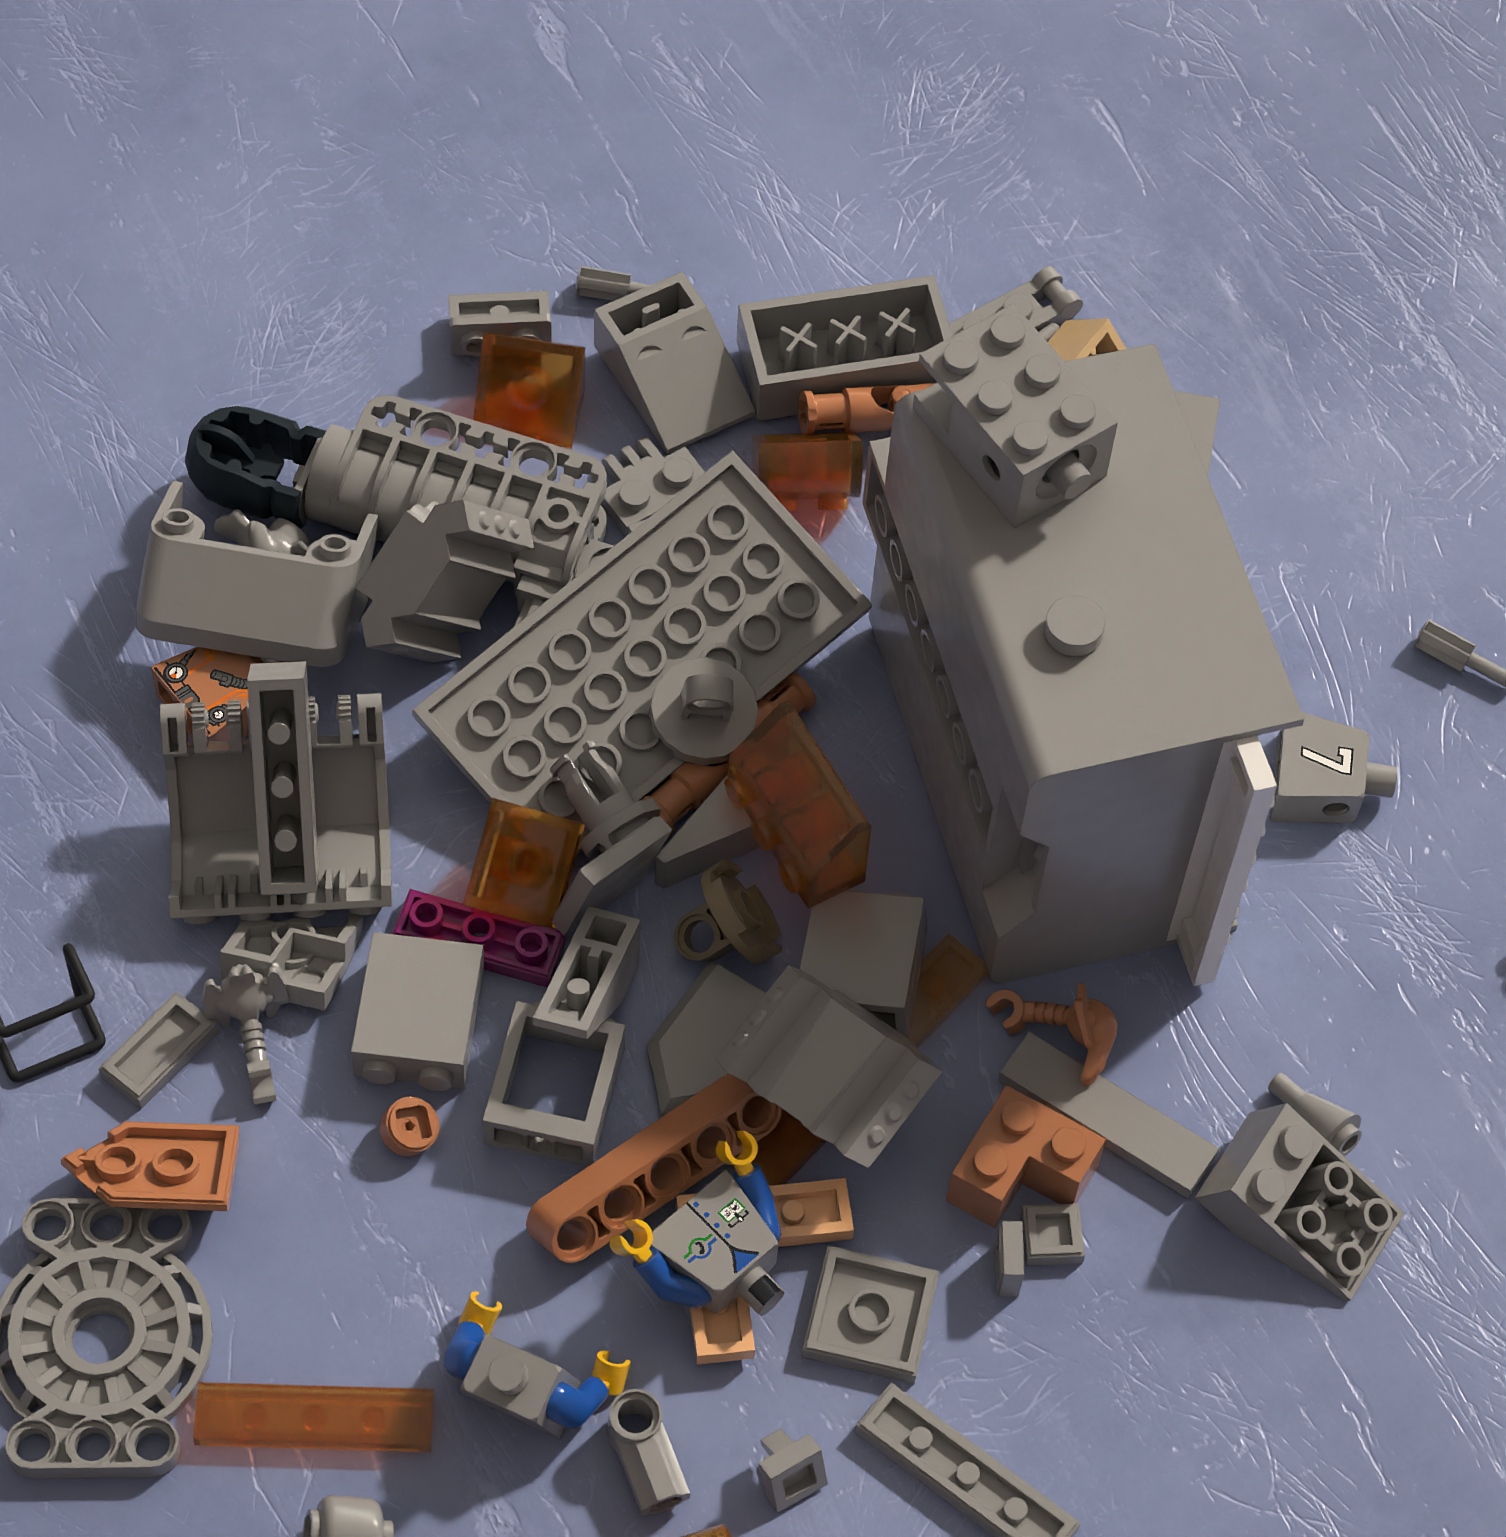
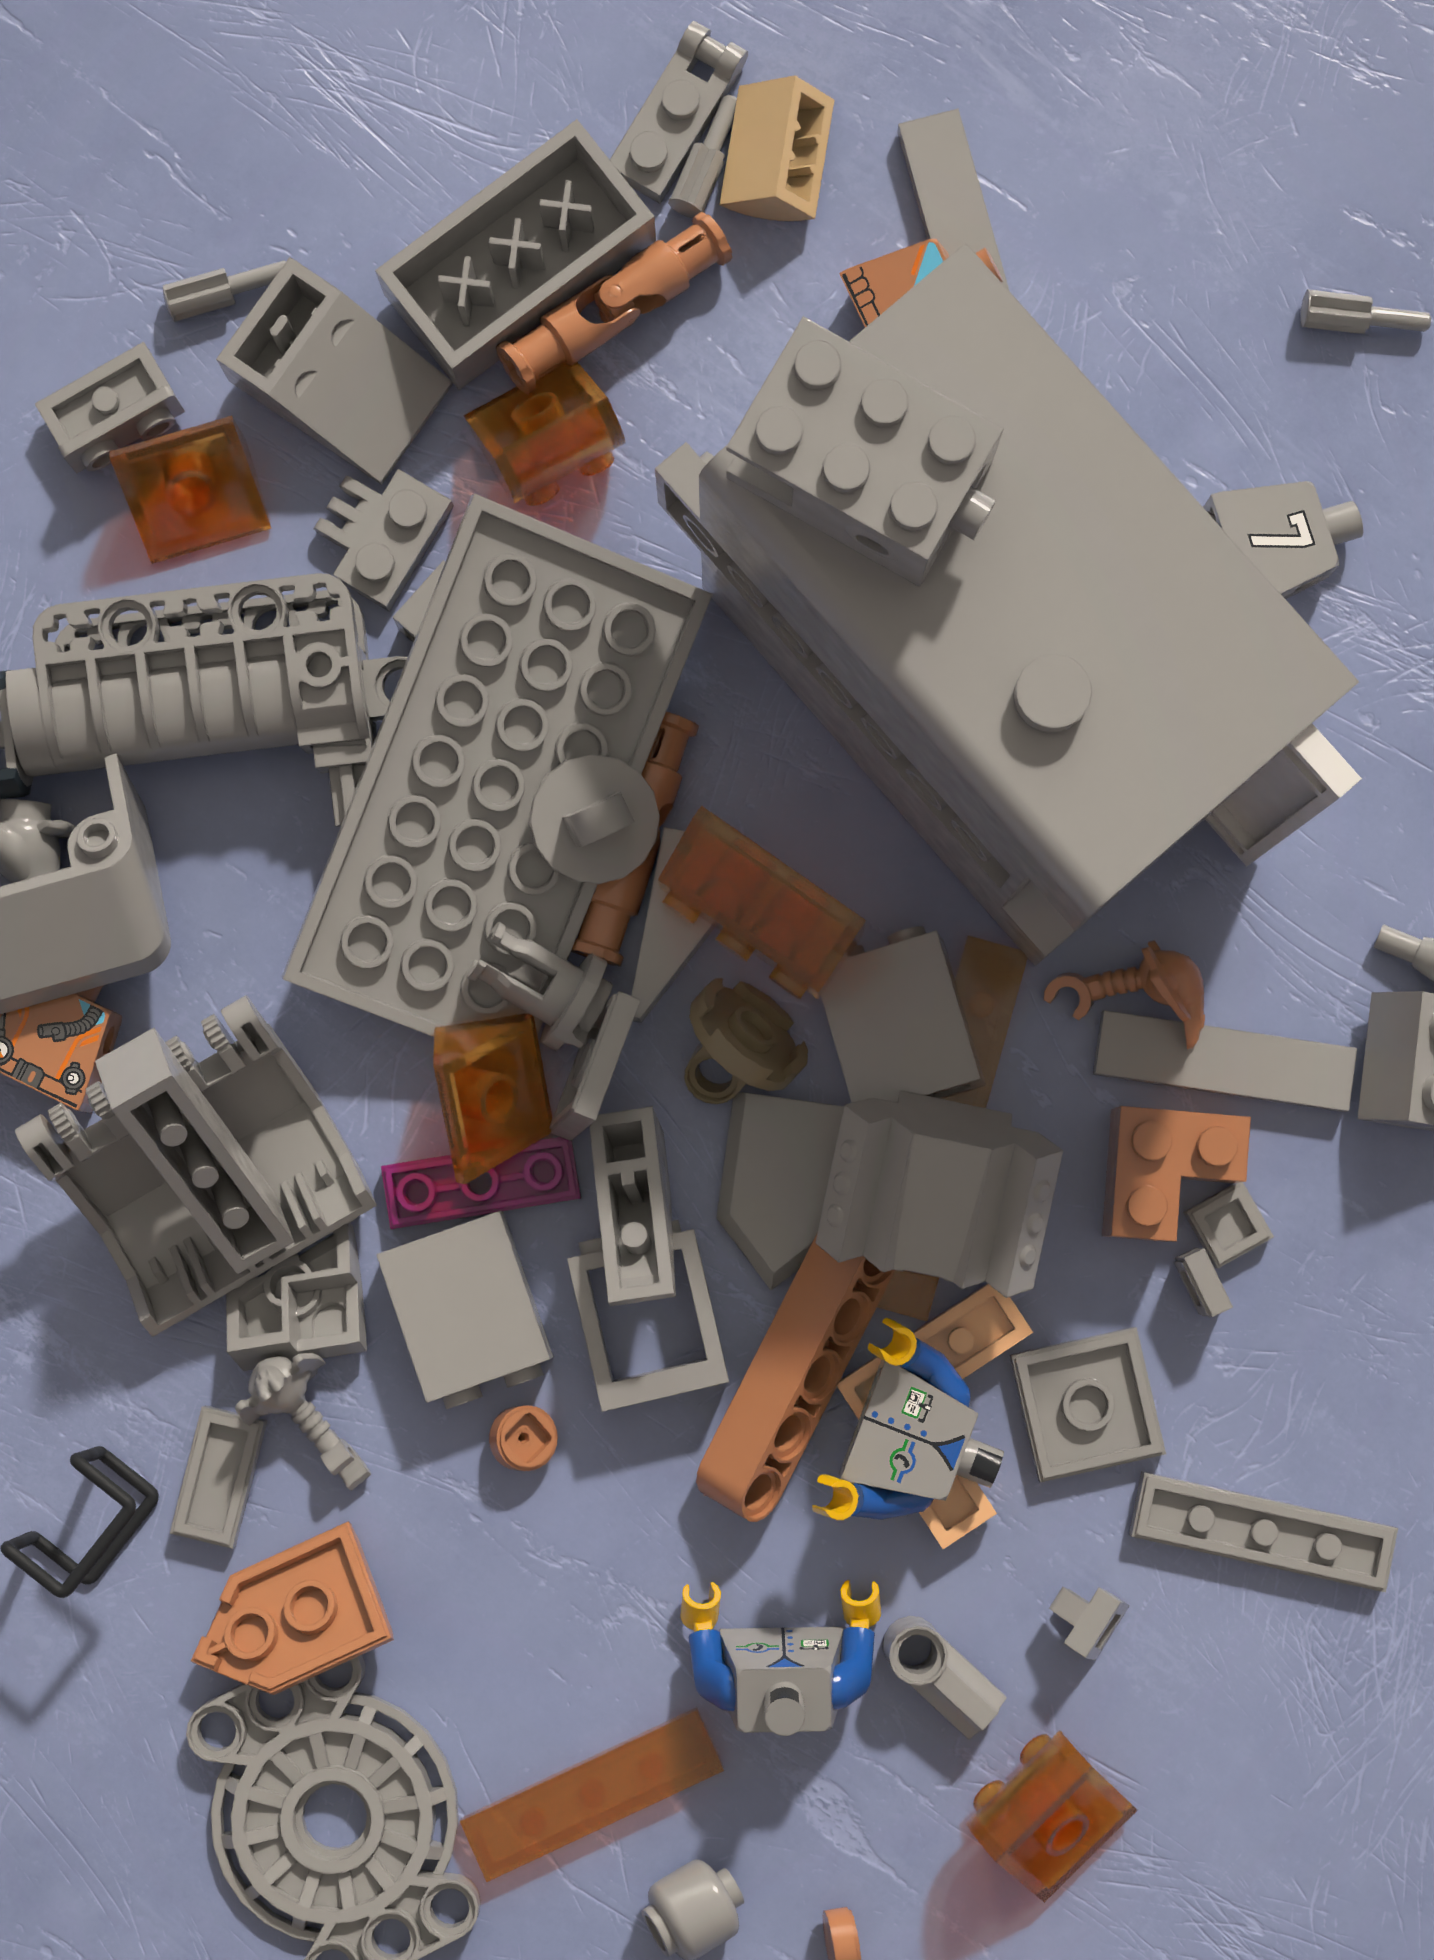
camera: 20 degrees left, 25 degrees up
(439, 577) = (226, 808): light grey slope -> none

